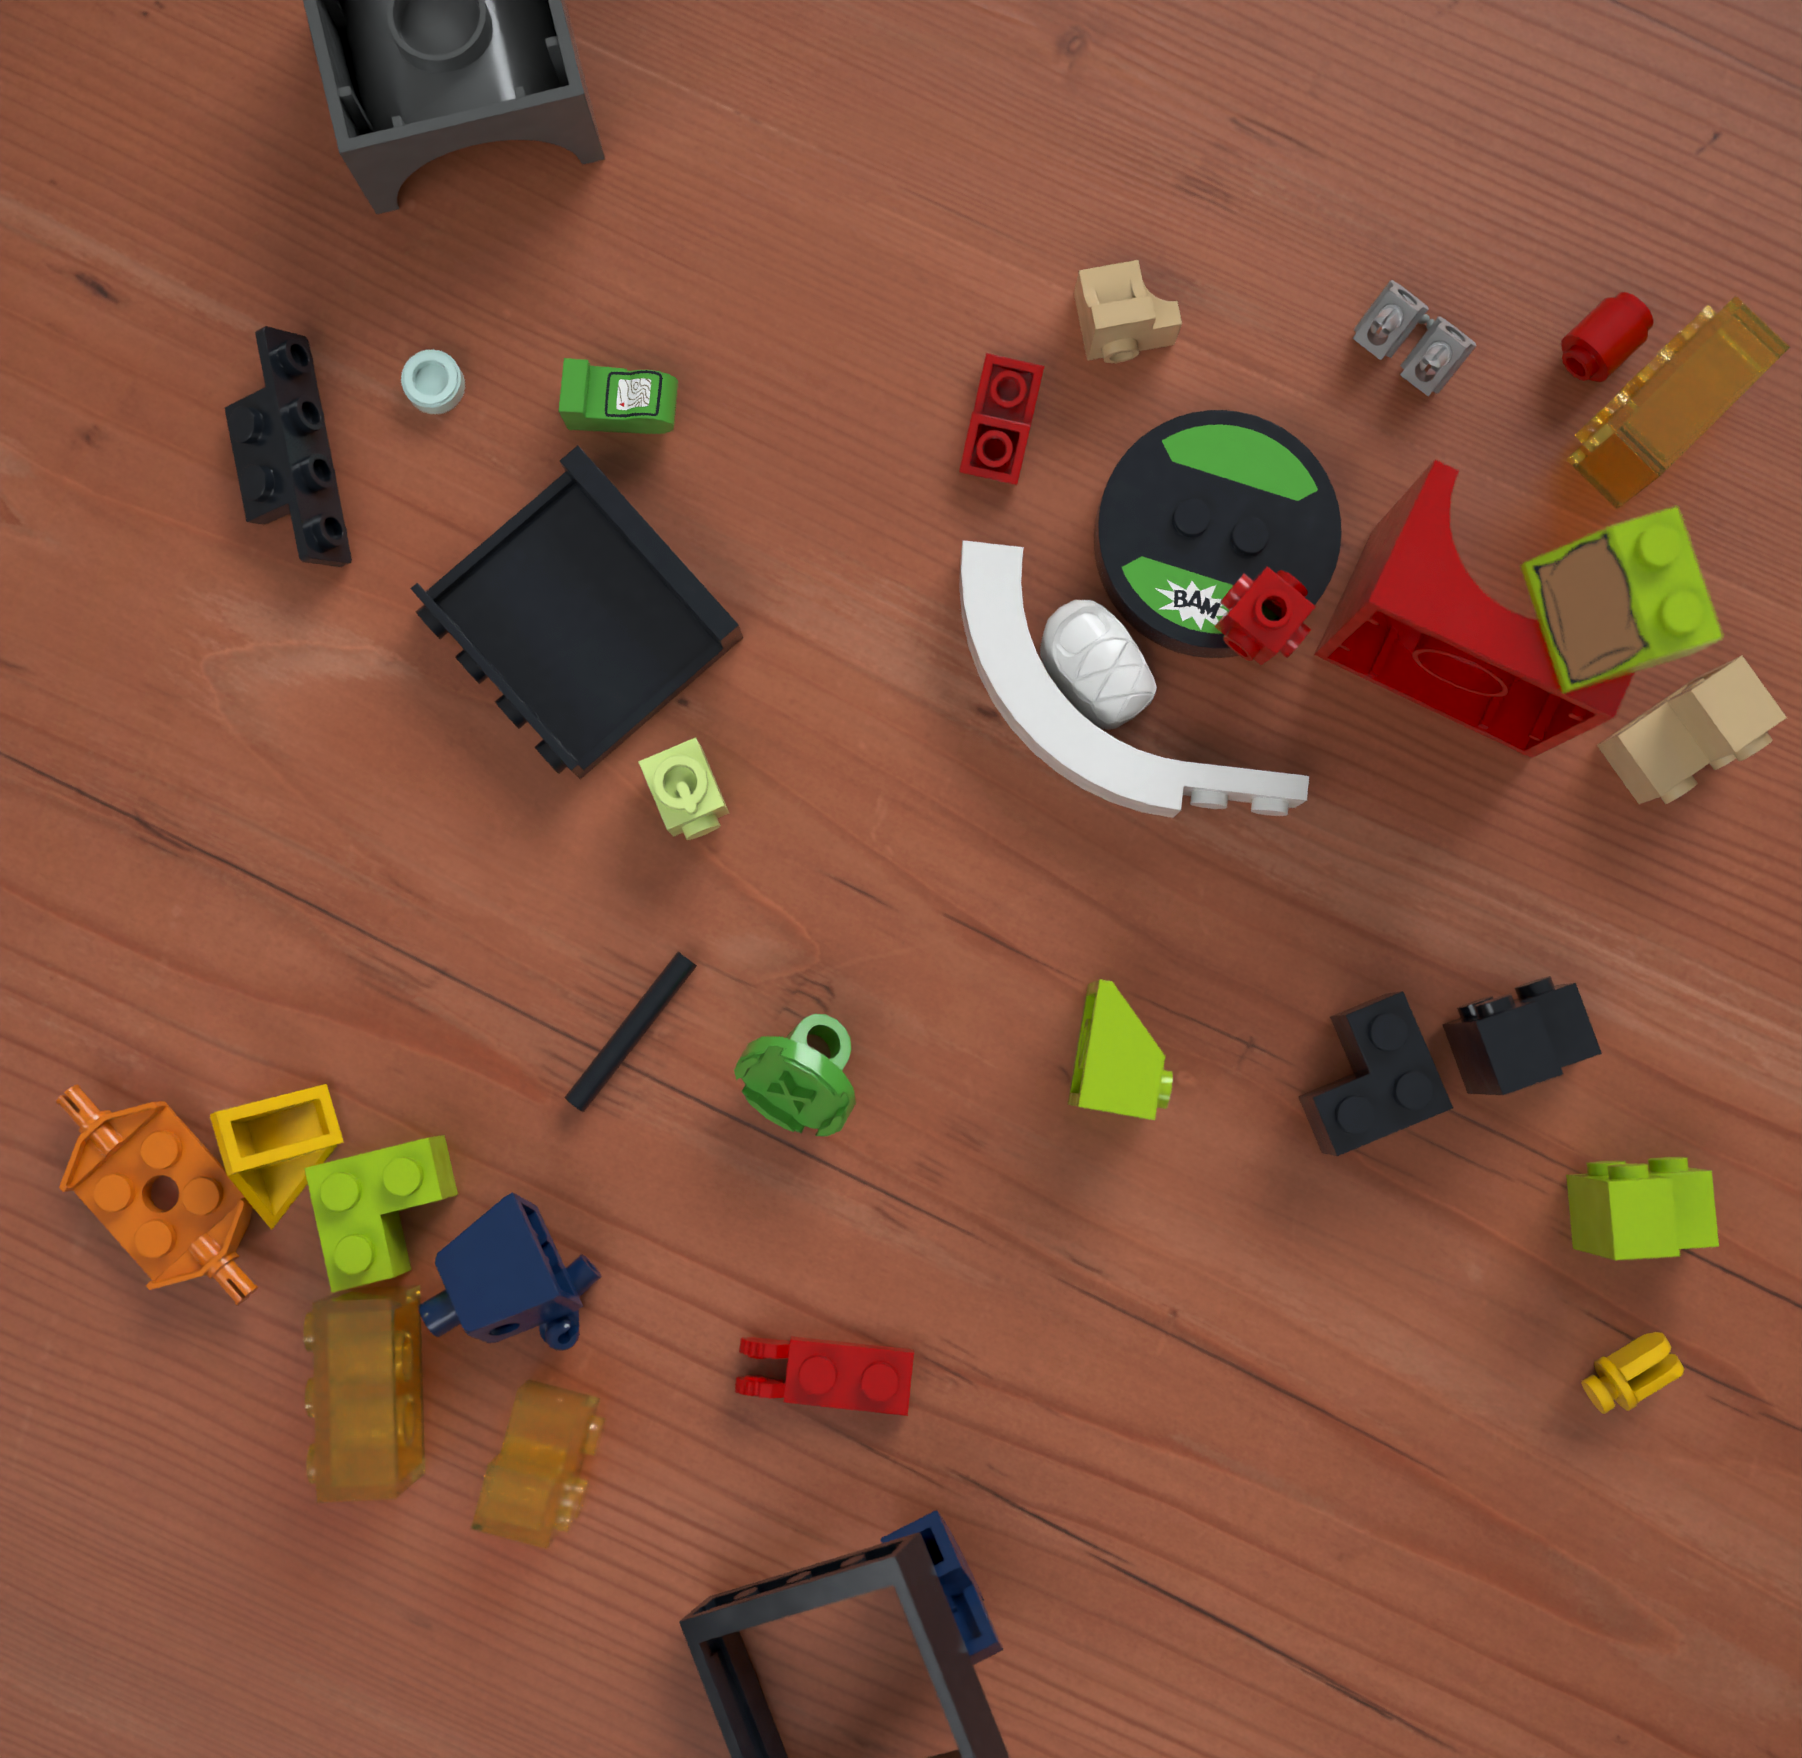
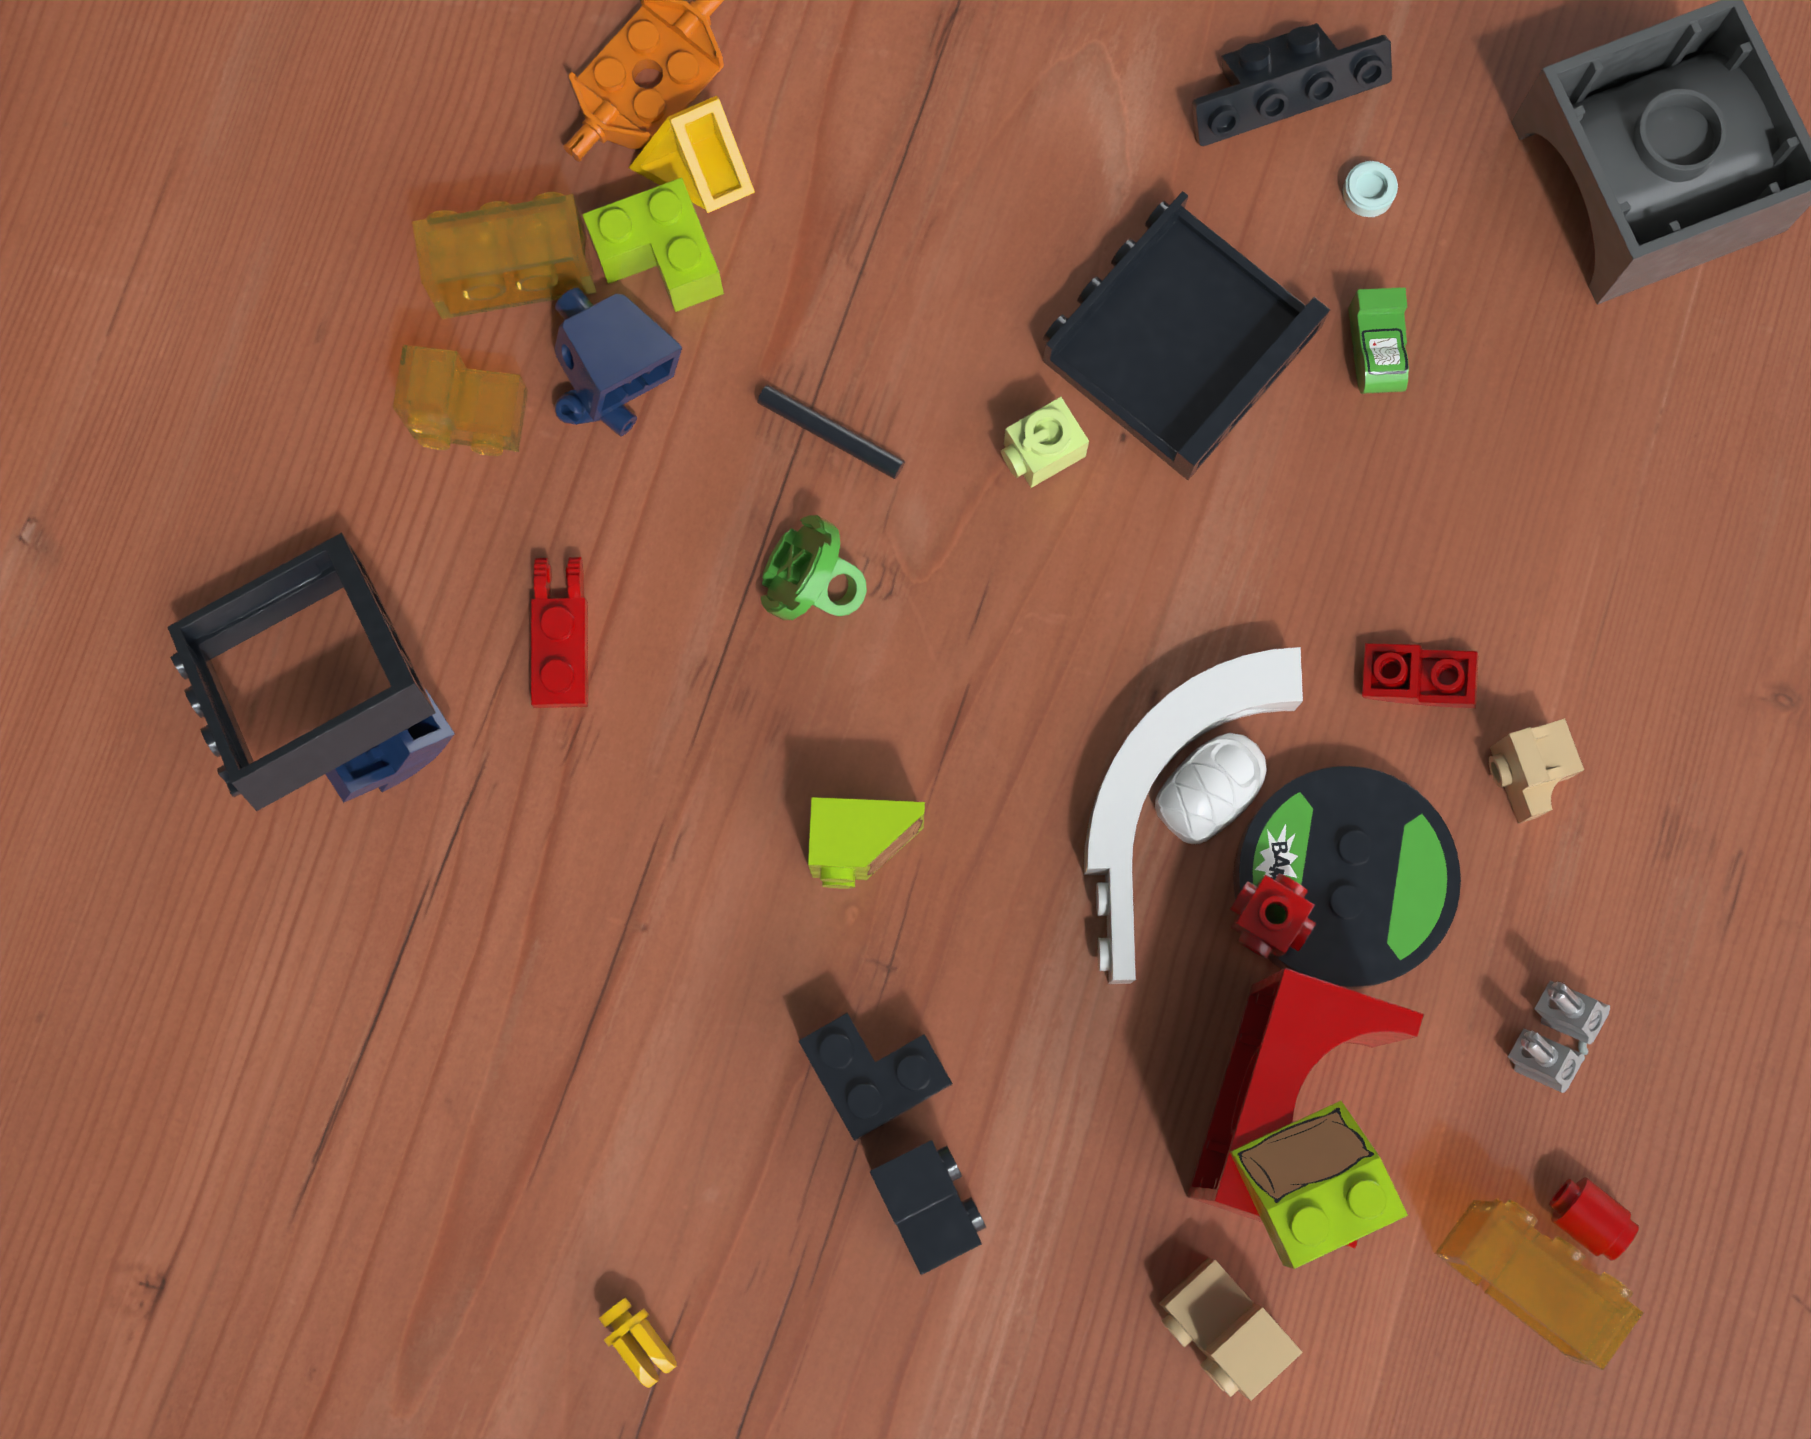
camera: 85 degrees right, 5 degrees down
(1642, 1211) = (784, 1335): lime brick -> none

